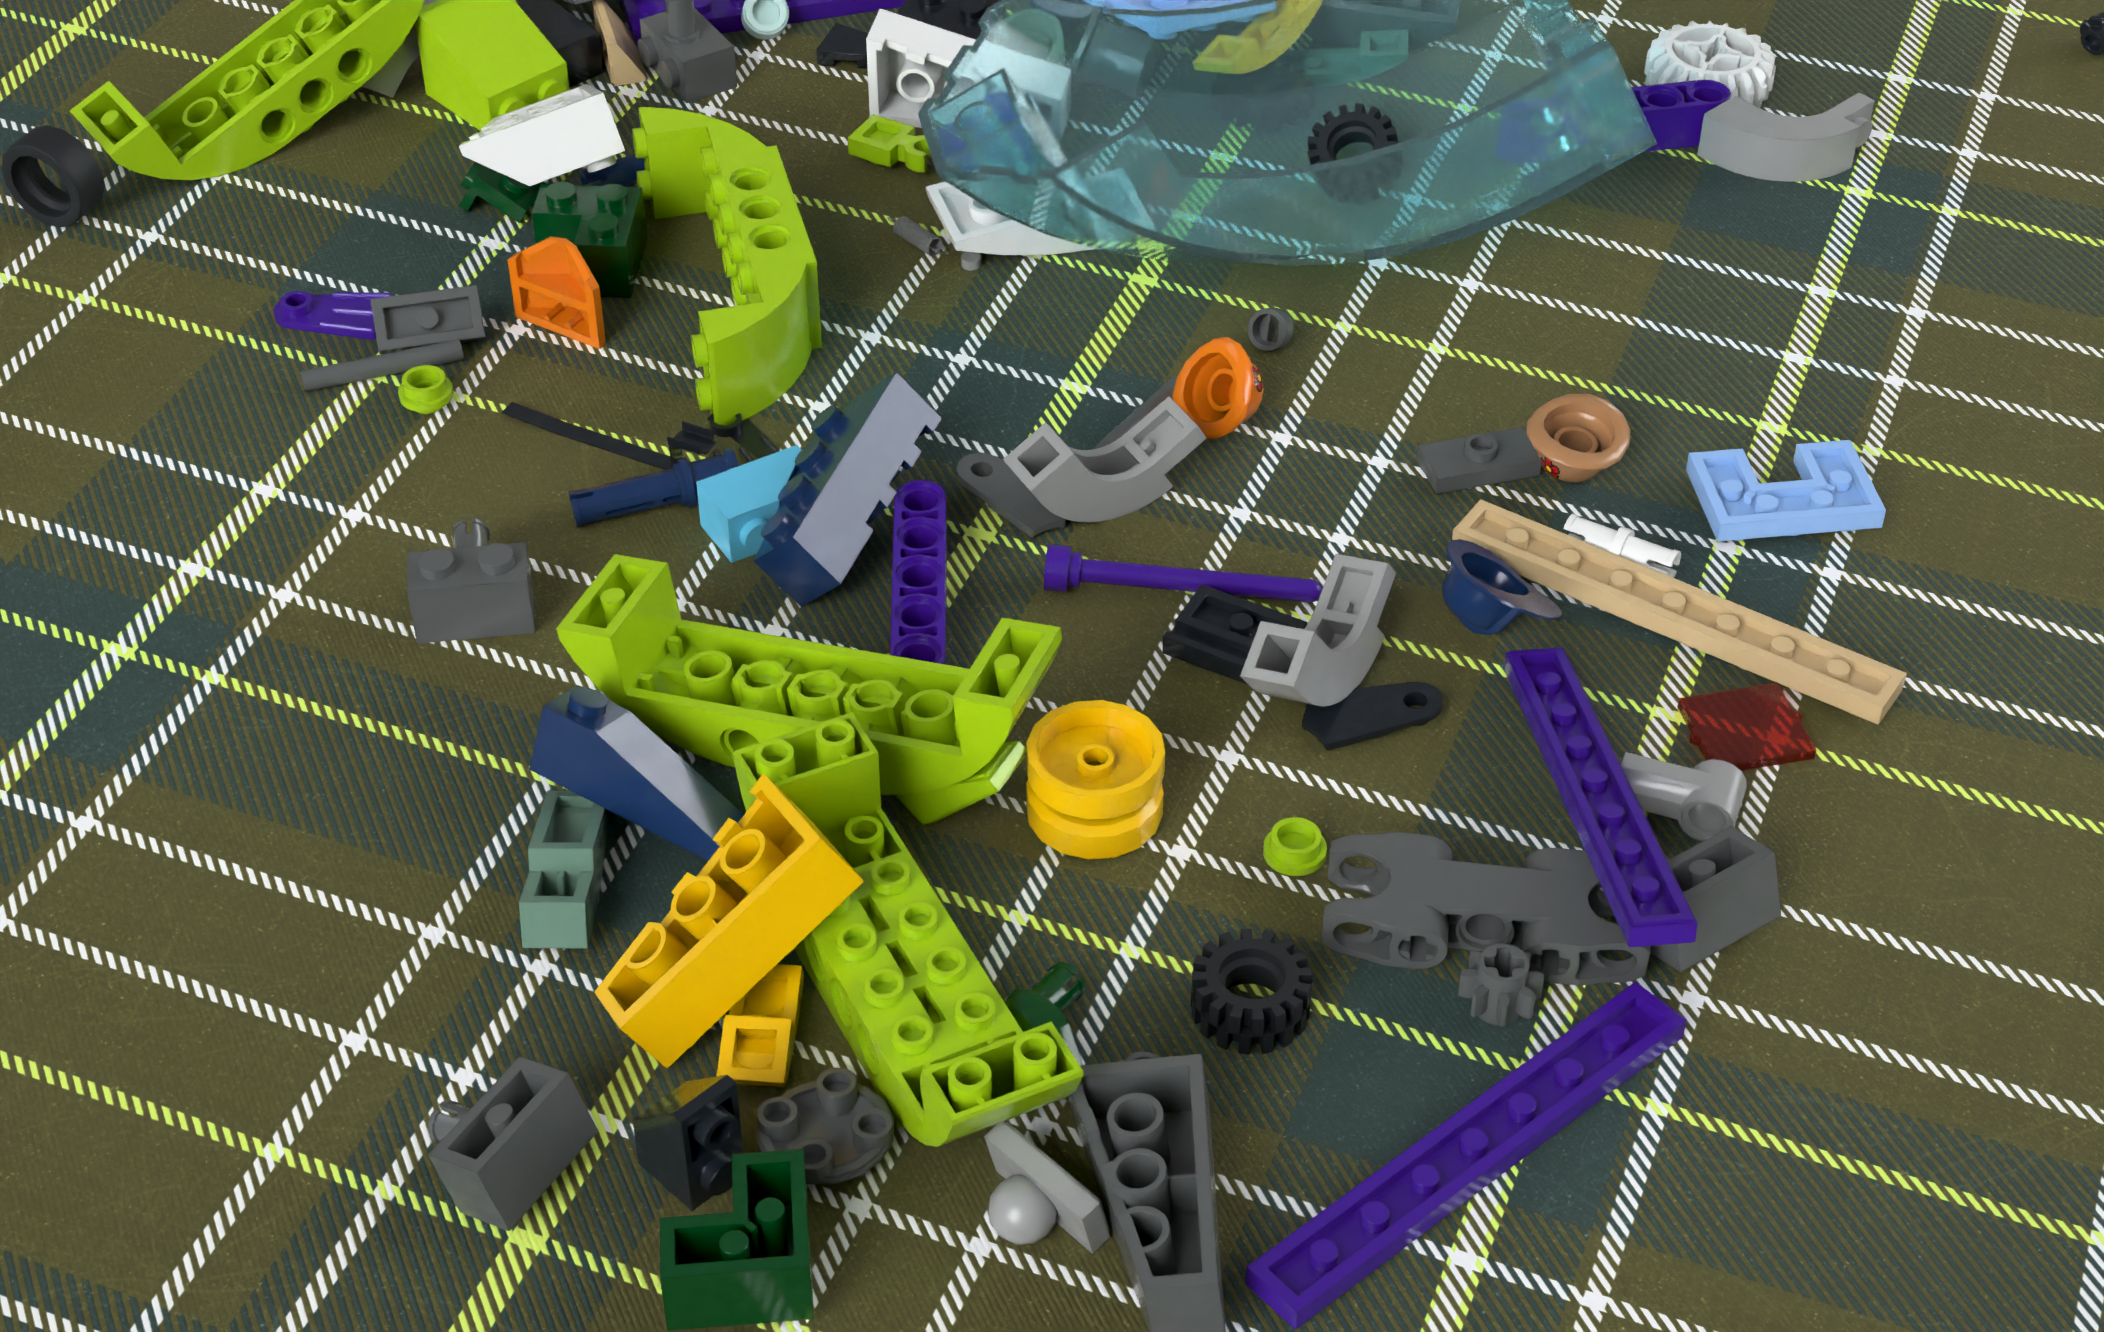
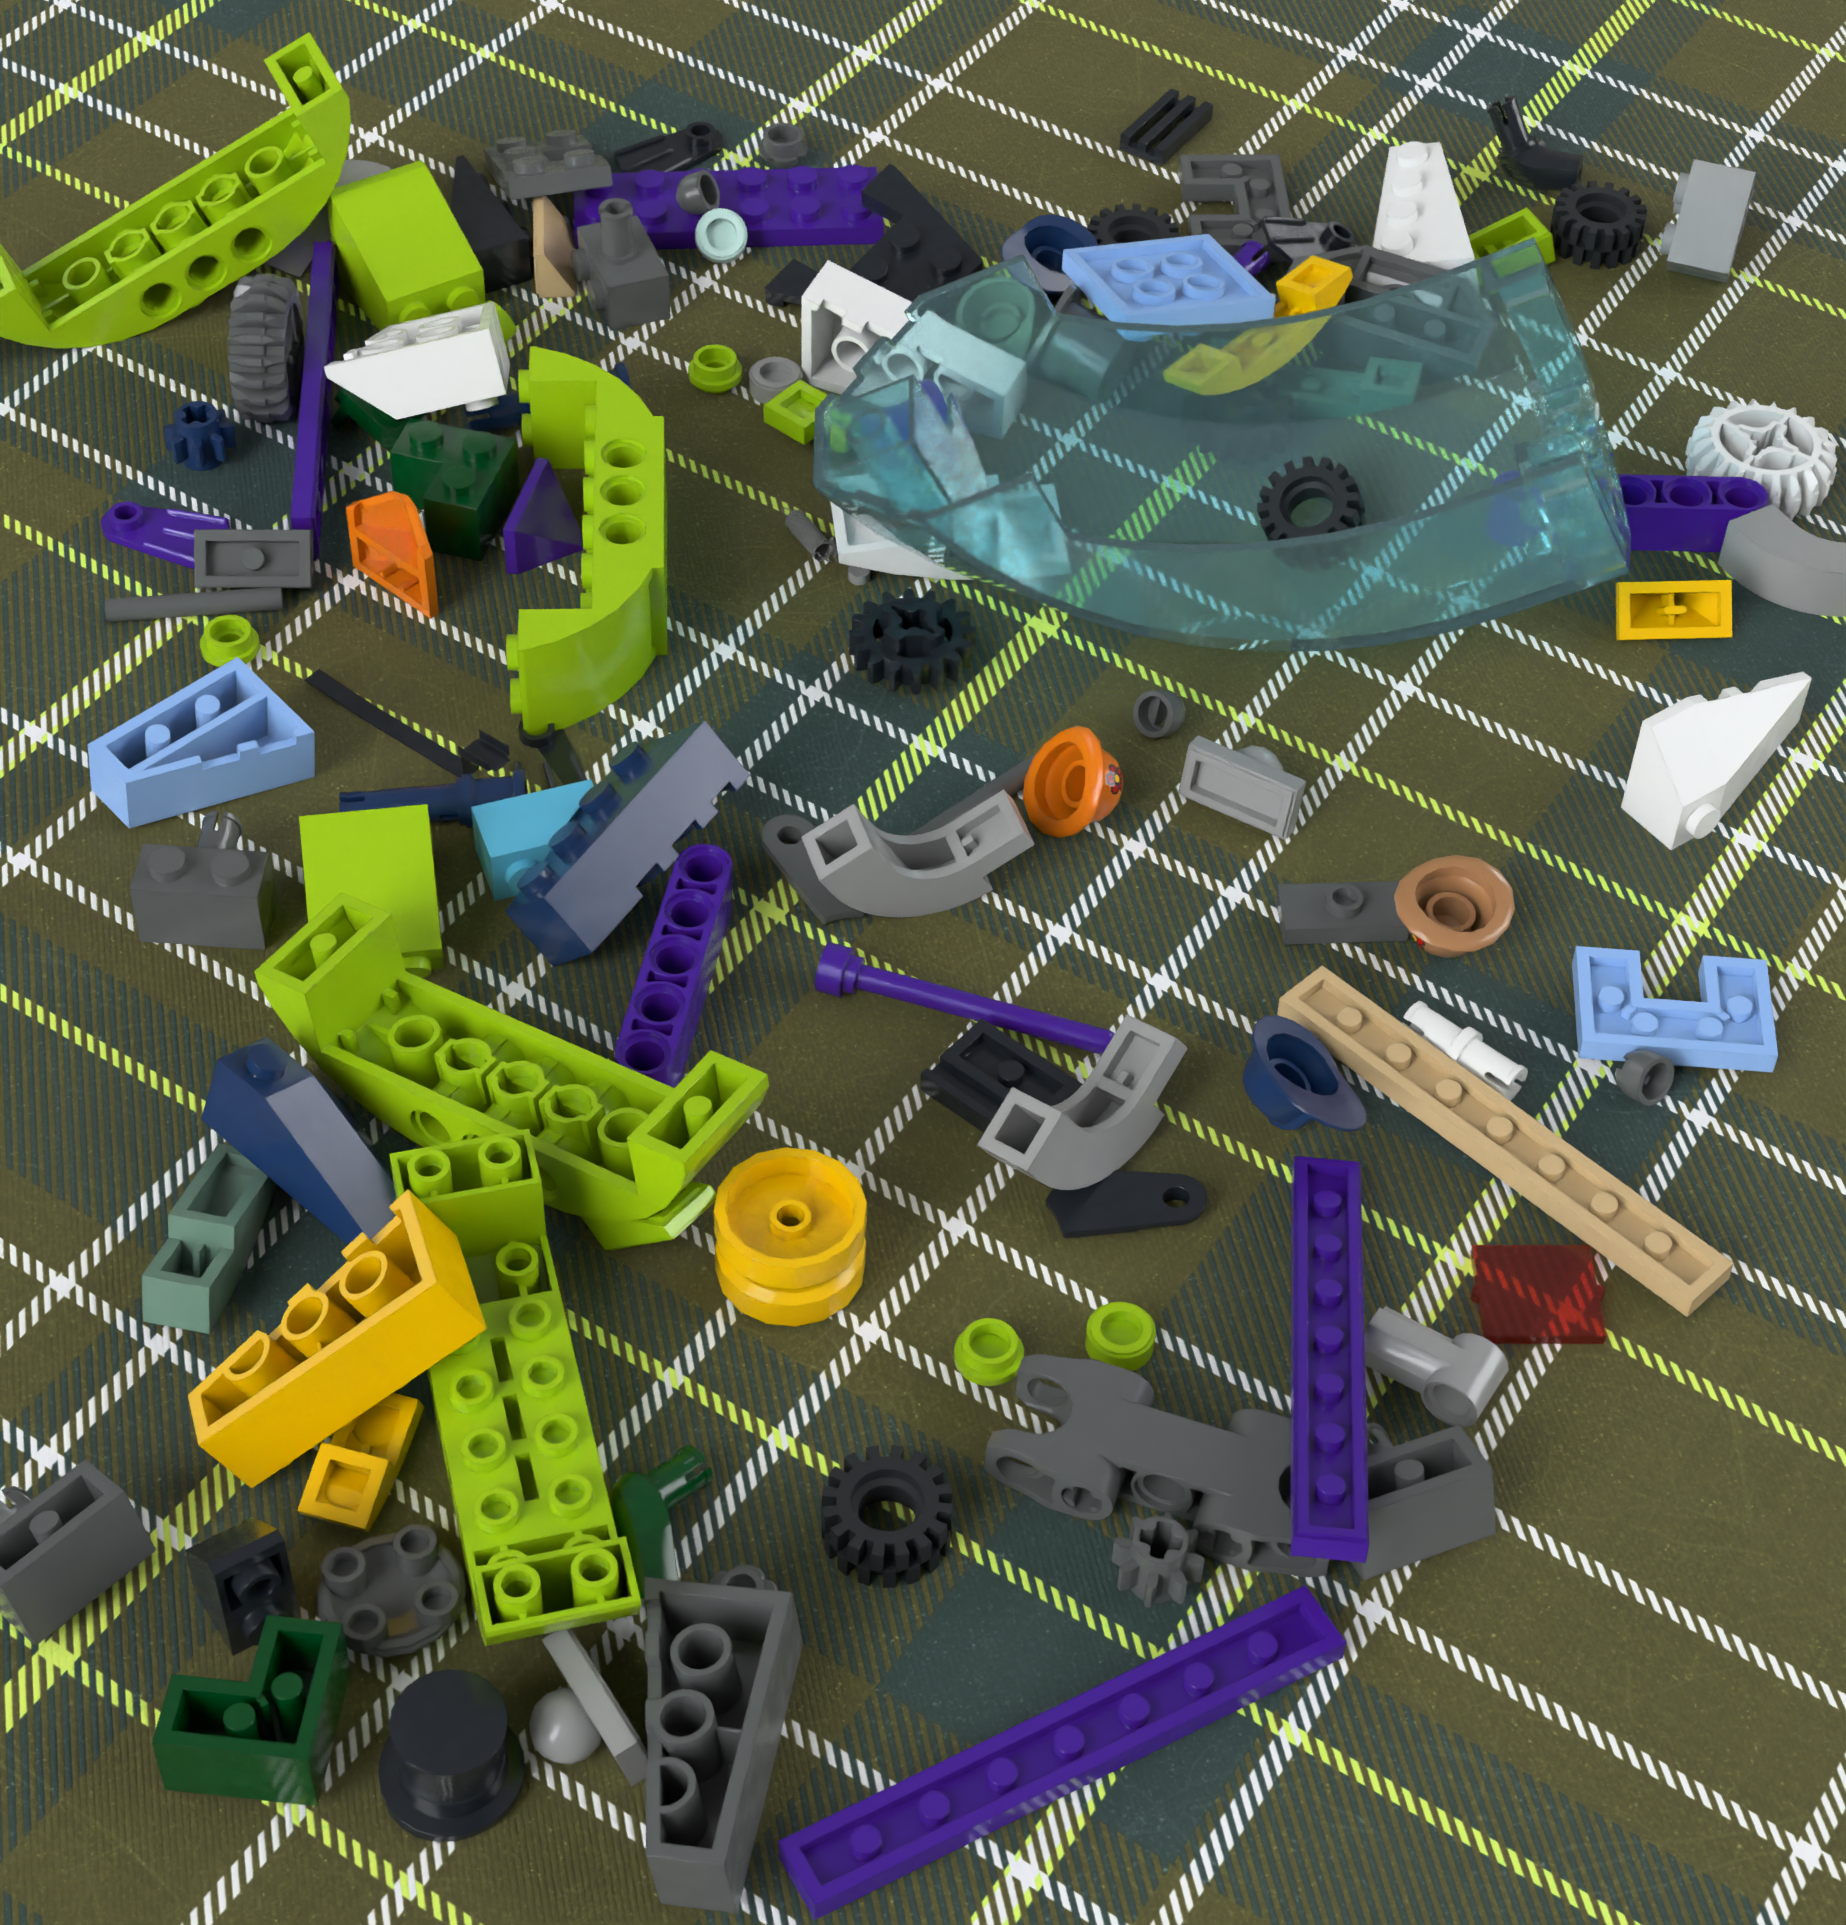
camera: 10 degrees right, 5 degrees up
(346, 229) = (199, 436): none -> dark blue gear
(390, 147) = (266, 348): none -> dark grey gear
(433, 473) = (201, 749): none -> light blue wedge
(441, 176) = (316, 394): none -> dark purple tile
(630, 522) = (383, 861): none -> lime slope
(679, 257) = (540, 523): none -> dark purple slope
(793, 118) = (715, 369): none -> lime plate
(844, 118) = (772, 377): none -> light grey tile
(927, 1254) = (450, 1757): none -> black piece
(1039, 302) = (912, 641): none -> black gear
(1363, 373) = (1243, 785): none -> light grey tile
(1403, 812) = (1120, 1335): none -> lime tile
(1677, 190) = (1674, 610): none -> yellow slope
(1743, 294) = (1705, 753): none -> white wedge
(1779, 544) = (1647, 1089): none -> dark grey hinge

